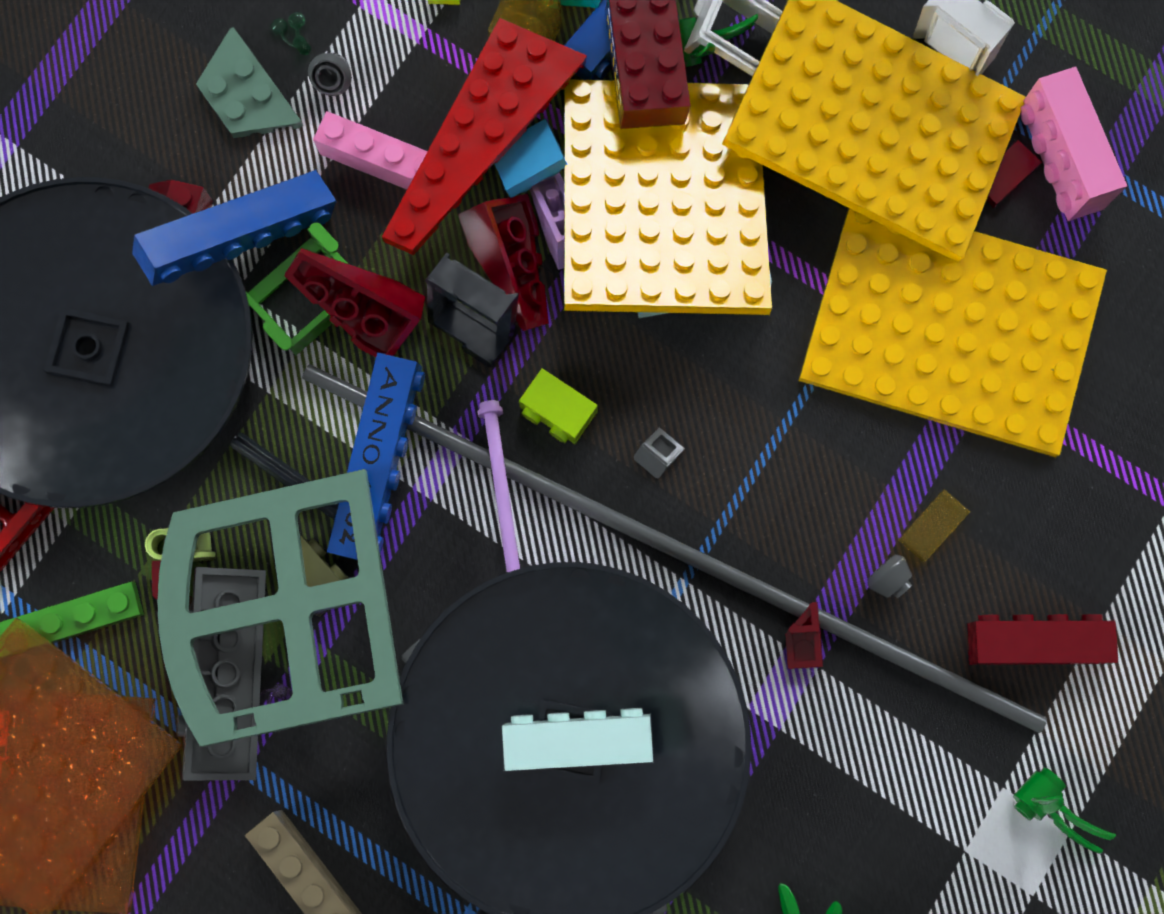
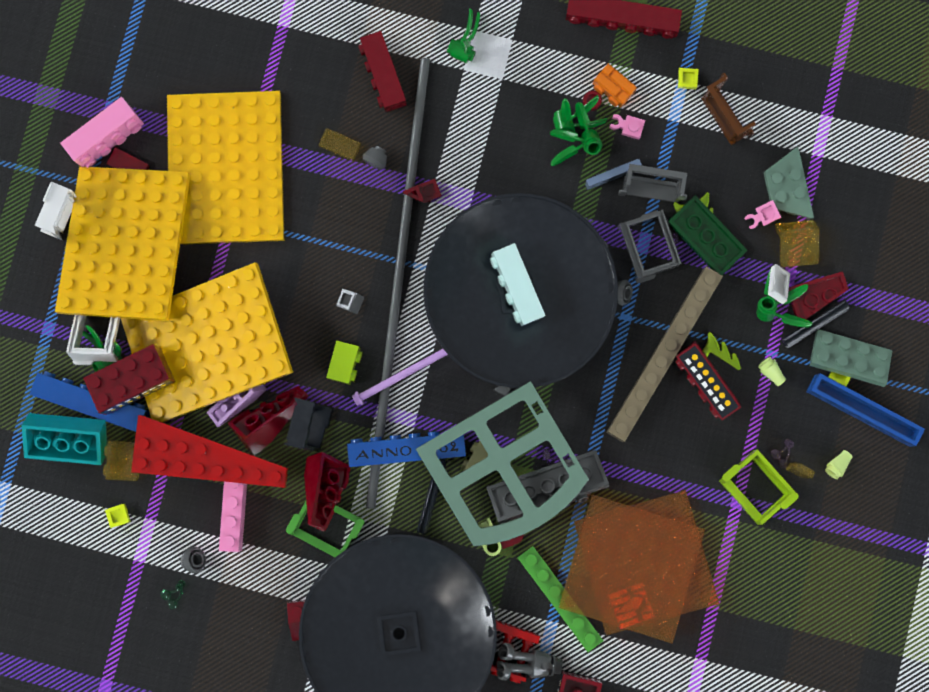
camera: 105 degrees left, 5 degrees up
(232, 228) = (305, 572): blue brick -> none
(243, 91) = (219, 608): sand green wing -> none
(531, 159) = (208, 424): dark azure tile -> none

